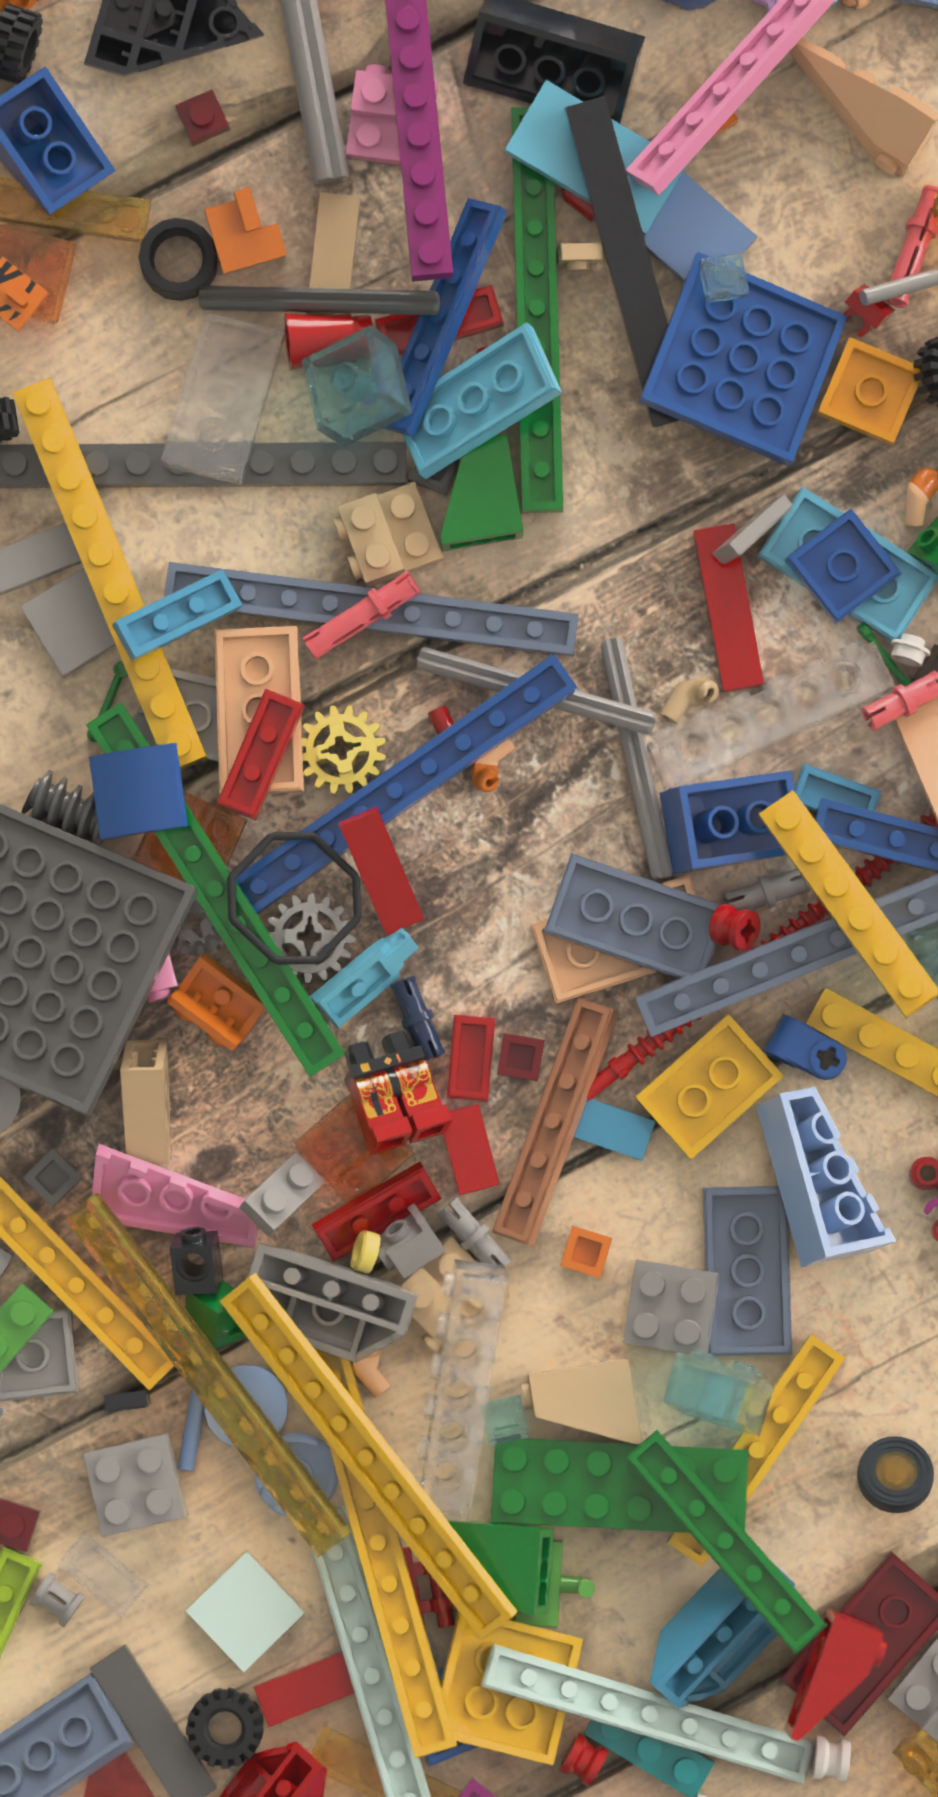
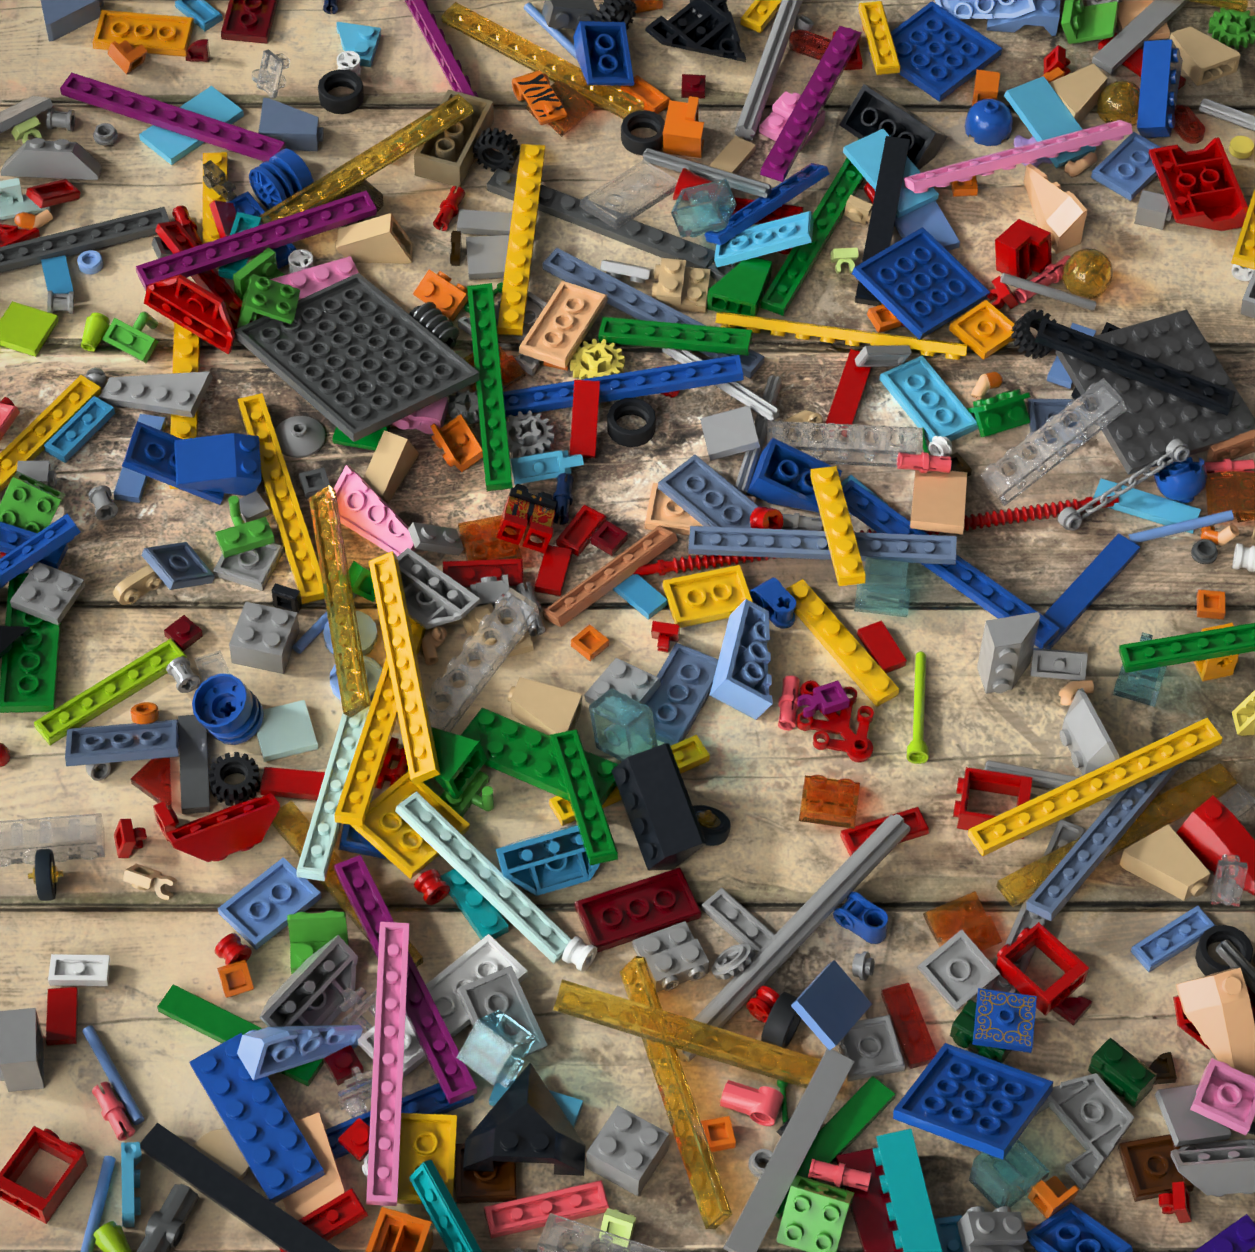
camera: 25 degrees right, 30 degrees down
(18, 638) = (456, 247): none -> dark brown tile
(41, 1688) = (144, 713): none -> orange tile
(46, 734) = (442, 293): none -> orange bracket
(138, 791) = (475, 319): blue slope -> none
(142, 174) = (653, 98): none -> orange tile
(161, 1642) = (227, 709): none -> blue wheel
(177, 615) = (546, 260): dark azure plate -> none
(191, 1277) = (361, 539): black brick -> none
(231, 894) = (534, 433): black piece -> none
(260, 754) = (551, 336): red tile -> none
(293, 548) = (637, 273): none -> plate
(365, 1252) = (467, 579): light yellow tile -> none
(369, 610) = (644, 305): coral pin -> none
(435, 652) = (675, 336): none -> green plate
(439, 801) = (635, 407): none -> black tyre
(485, 770) = (674, 402): orange arm -> none
(505, 1420) = (492, 701): clear light blue tile -> none
(598, 781) = (730, 433): none -> light grey tile
(600, 355) = (844, 256): none -> yellowish green tile
(665, 511) = (829, 334): none -> yellow plate
(682, 1184) = (665, 633): none -> red tile
(712, 450) = (882, 318): none -> orange plate
(723, 277) = (930, 241): clear light blue plate -> none
(831, 1501) = (659, 807): none -> black slope
(835, 1668) = (607, 893): red slope -> none
(843, 566) = (924, 394): blue tile -> none
(862, 217) = (1023, 250): none -> red plate
(906, 1208) = (788, 703): none -> coral pin

